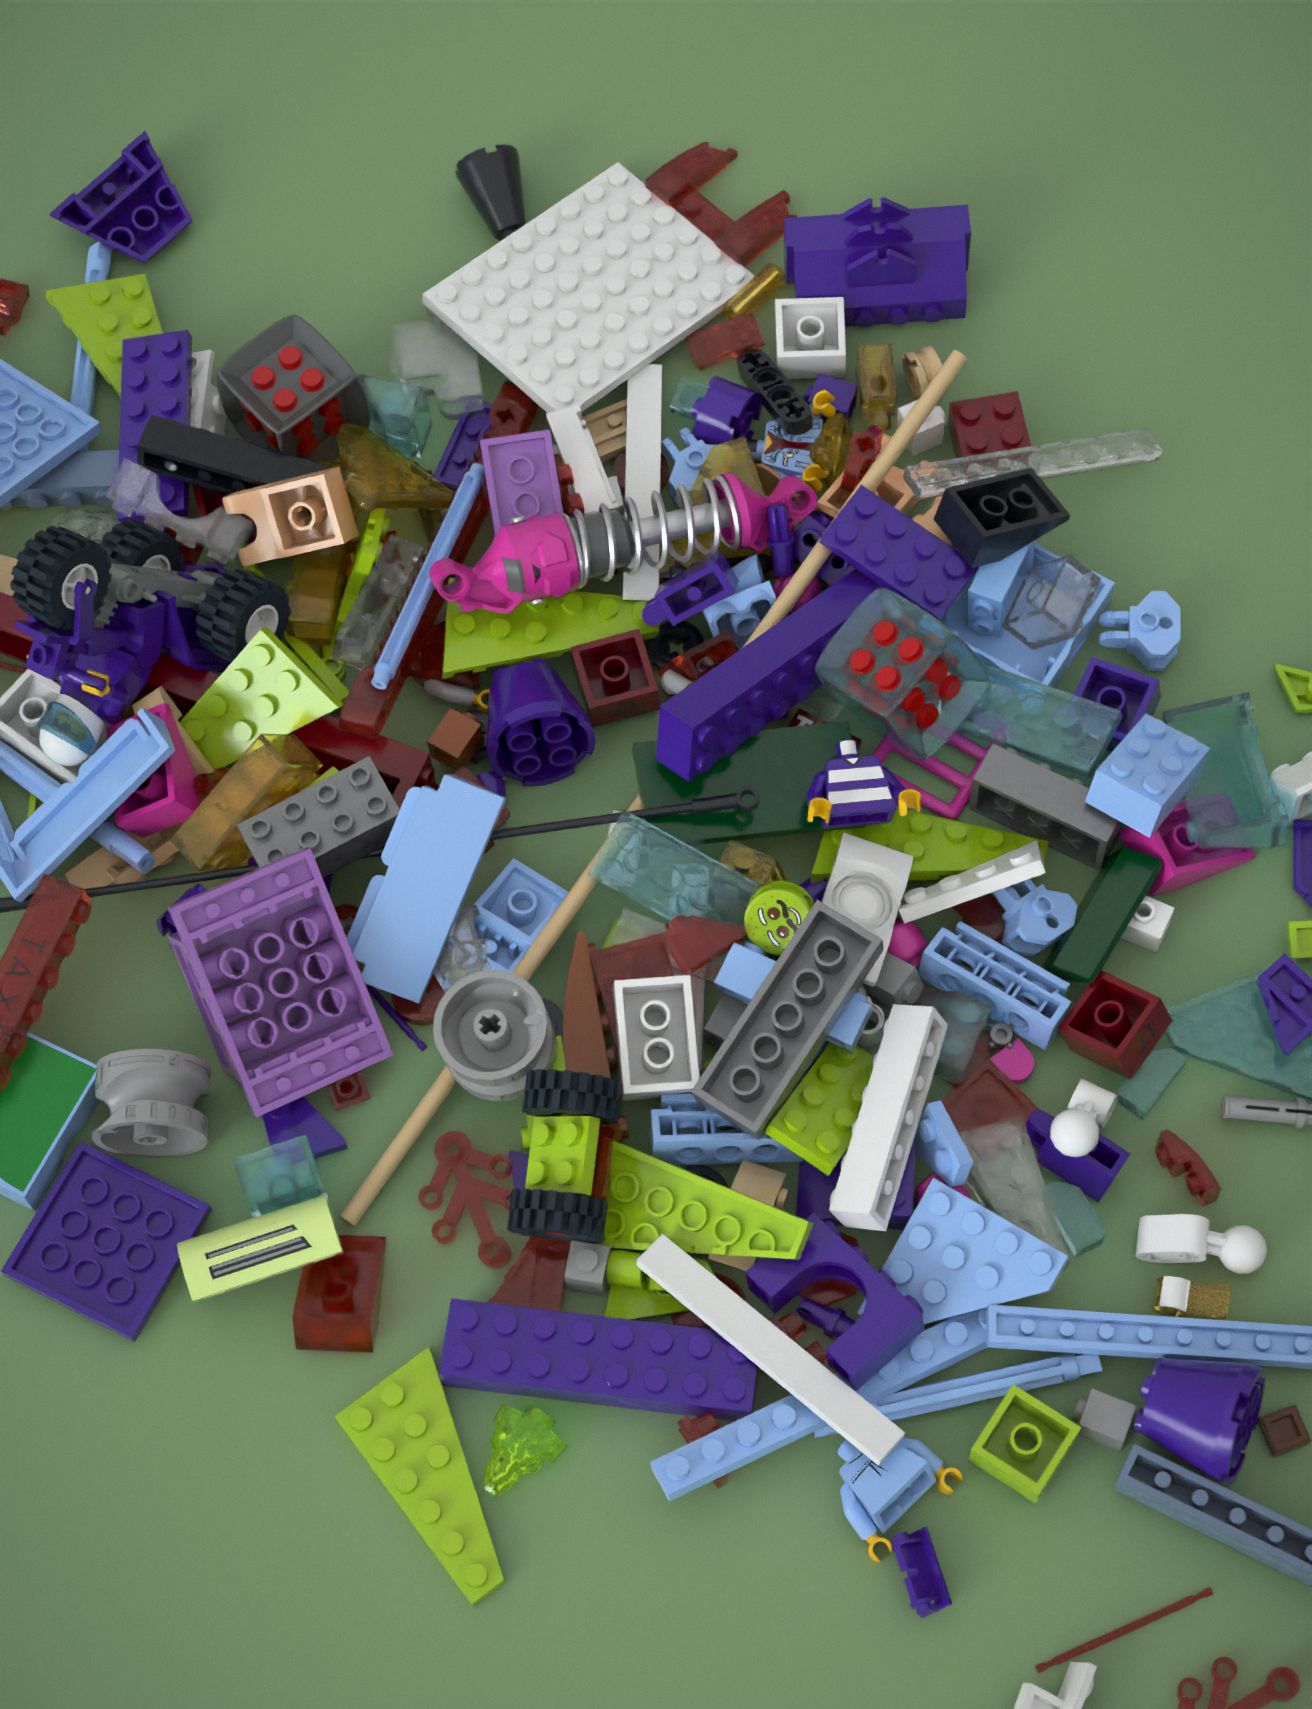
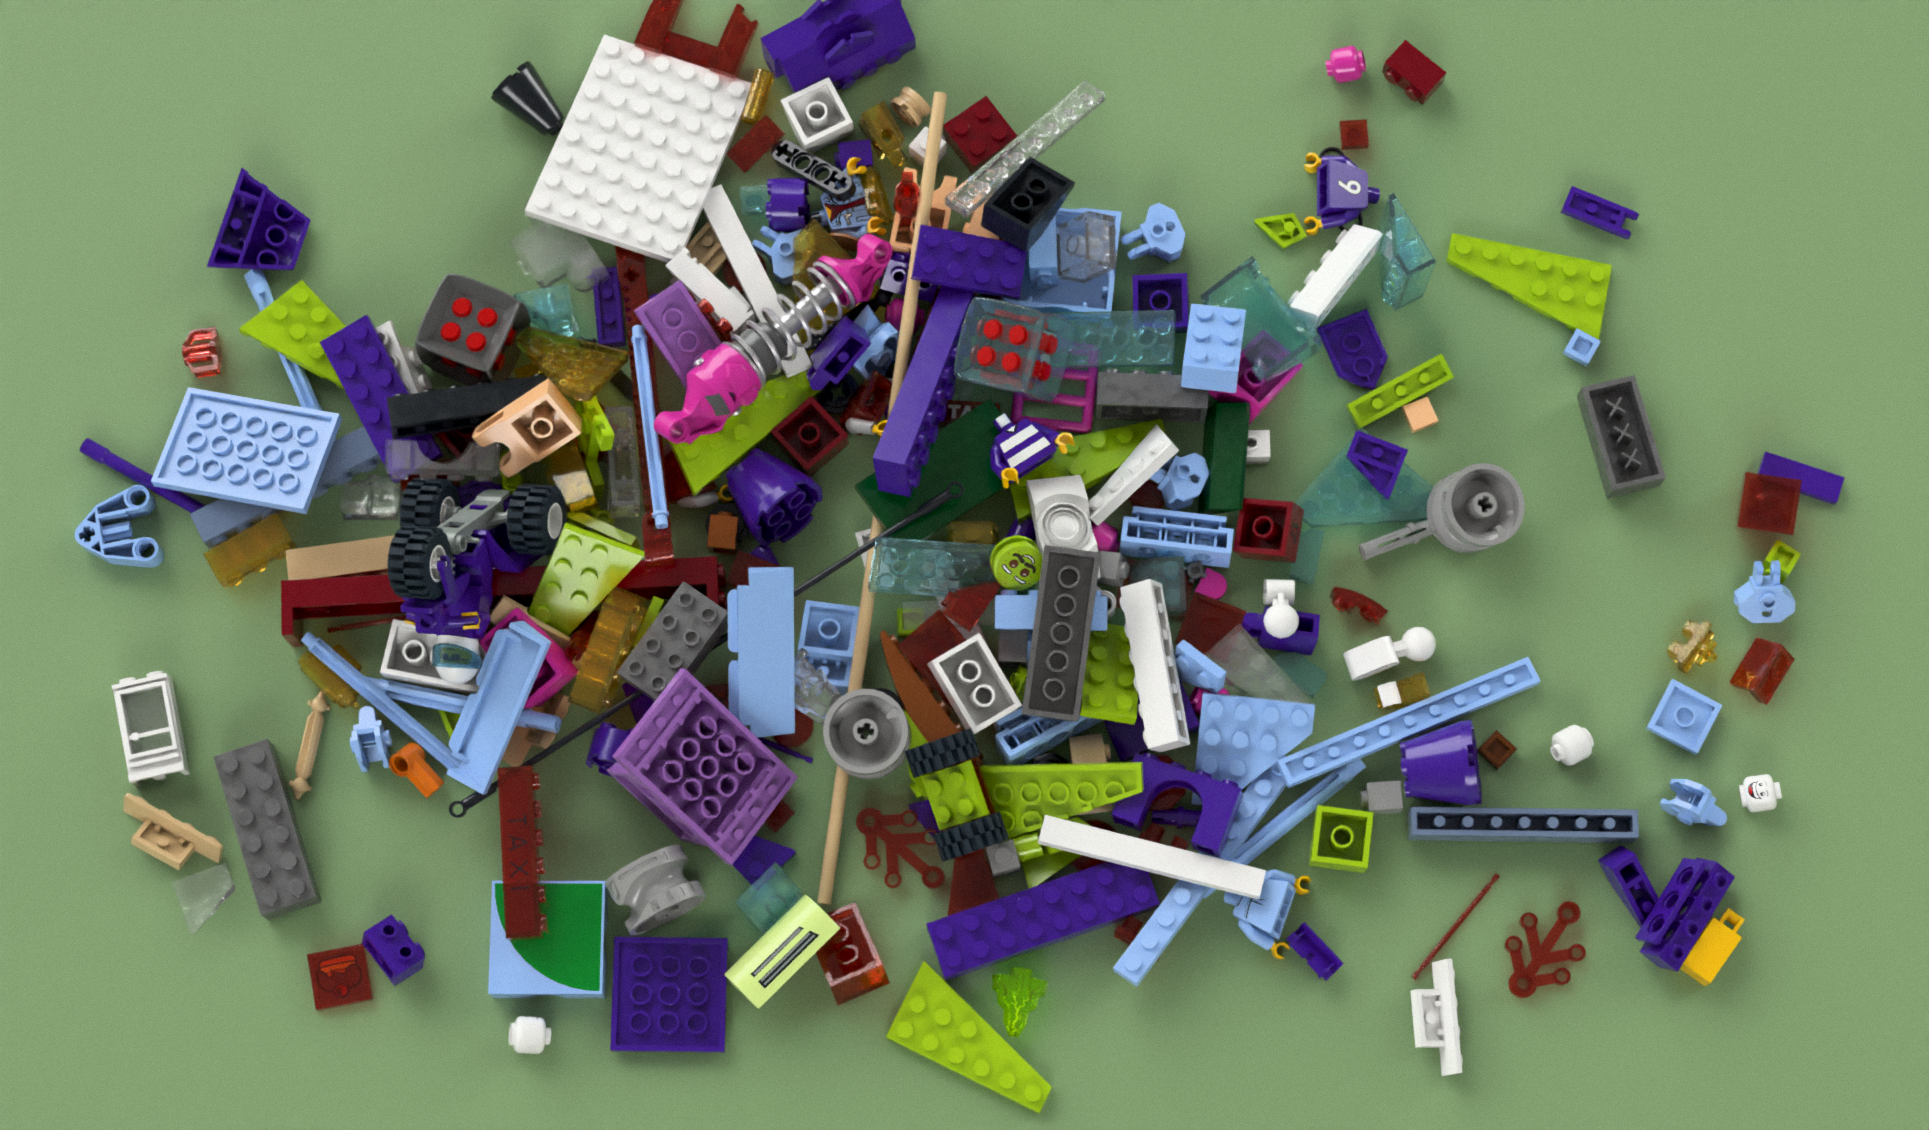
camera: 30 degrees left, 10 degrees up
(780, 540) = (879, 287): dark purple axle -> none

